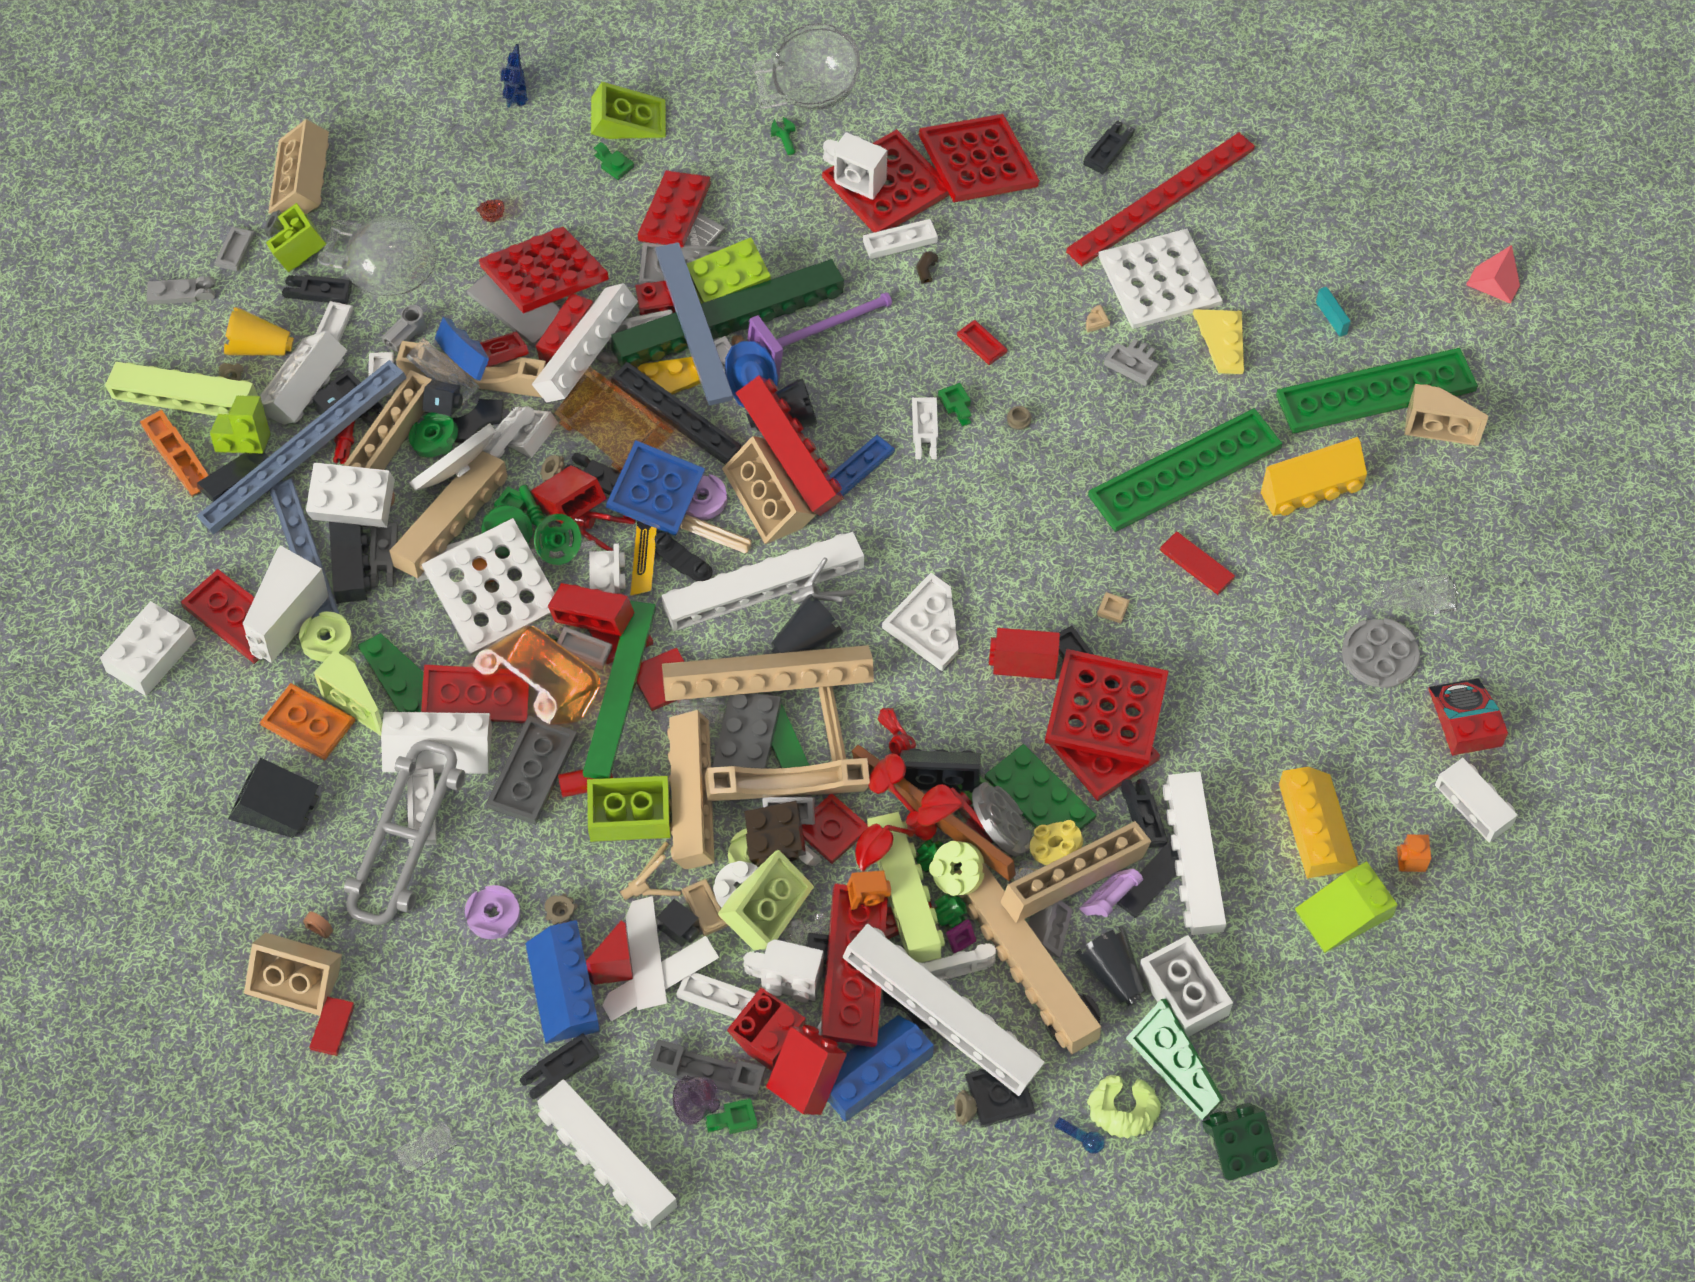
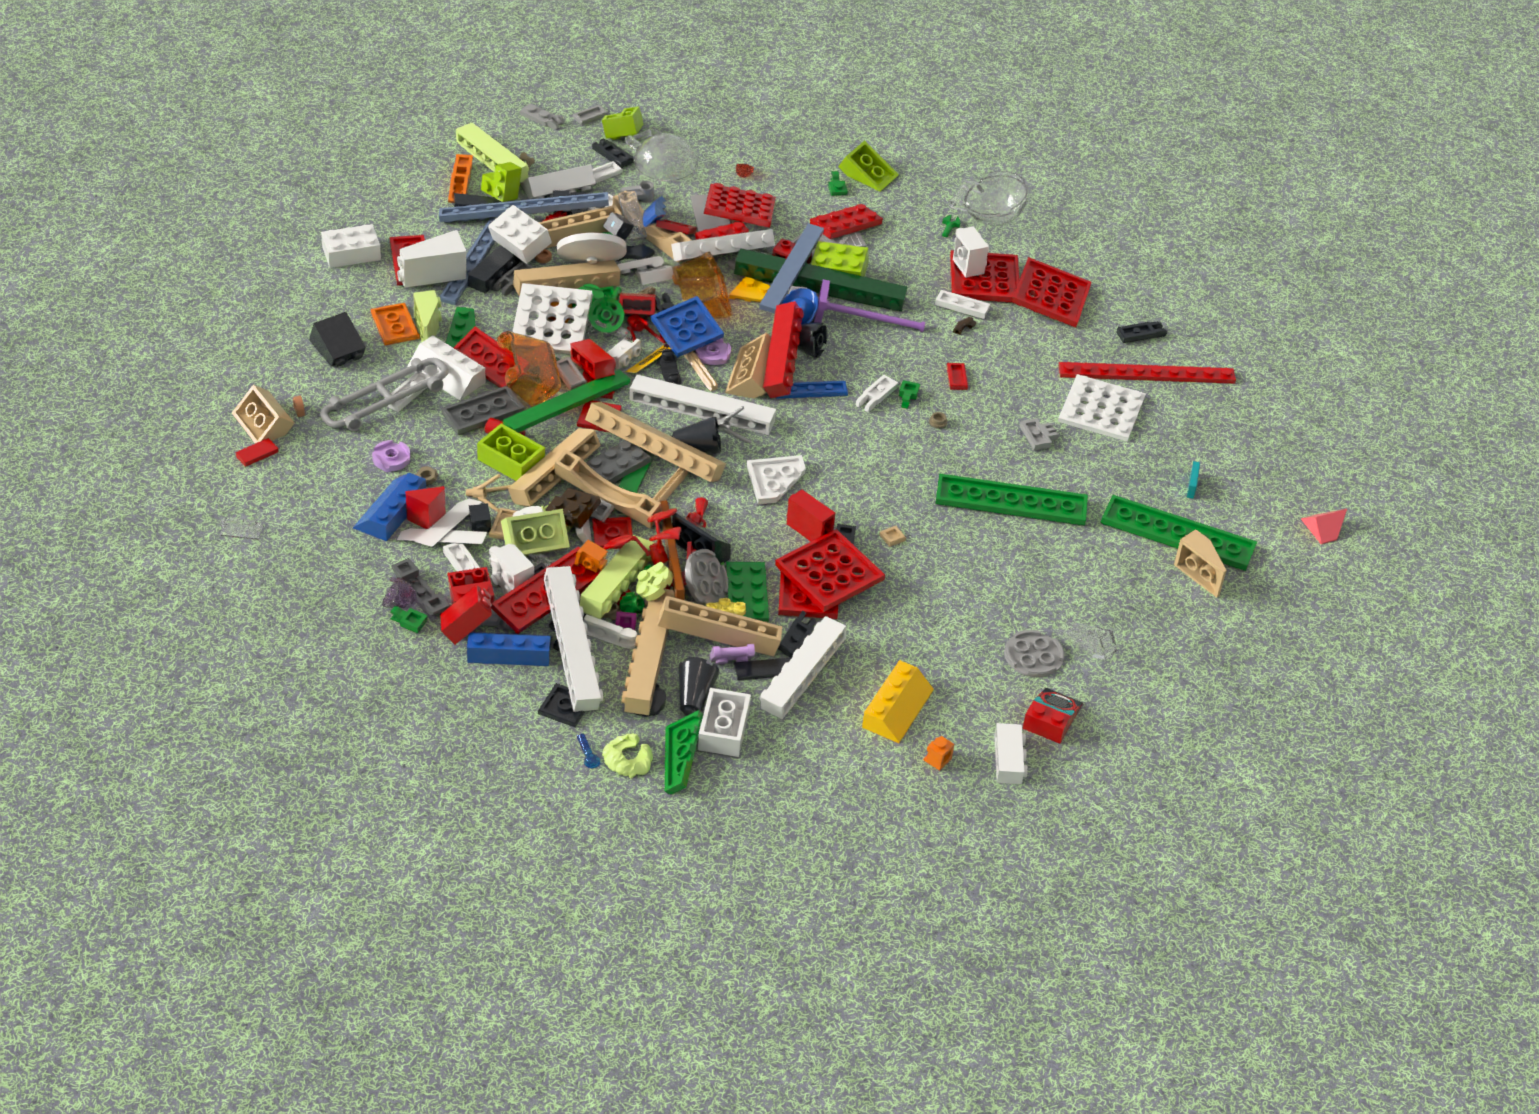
camera: 35 degrees right, 15 degrees down
(255, 336) = (553, 150): yellow cone -> none
(299, 168) = (664, 98): tan slope -> none
(328, 622) = (450, 290): yellowish green plate -> none
(514, 80) = (822, 121): clear blue hinge -> none
(560, 1065) = (347, 539): black hinge -> none
(606, 1154) = (325, 590): white brick -> none
(676, 413) = (739, 303): black tile -> none
(708, 708) = (606, 440): clear hinge -> none
(965, 1107) = (538, 696): dark tan animal -> none
(1051, 926) = (683, 649): light grey slope -> none
(1097, 319) = (1039, 405): tan tile -> none
(1197, 563) = (968, 546): red tile -> none
(1223, 337) = (1109, 455): light yellow wing -> none
(1242, 1140) = (674, 814): dark green bracket -> none
(1314, 477) = (1085, 543): yellow slope -> none
(1347, 907) = (867, 752): lime slope -> none

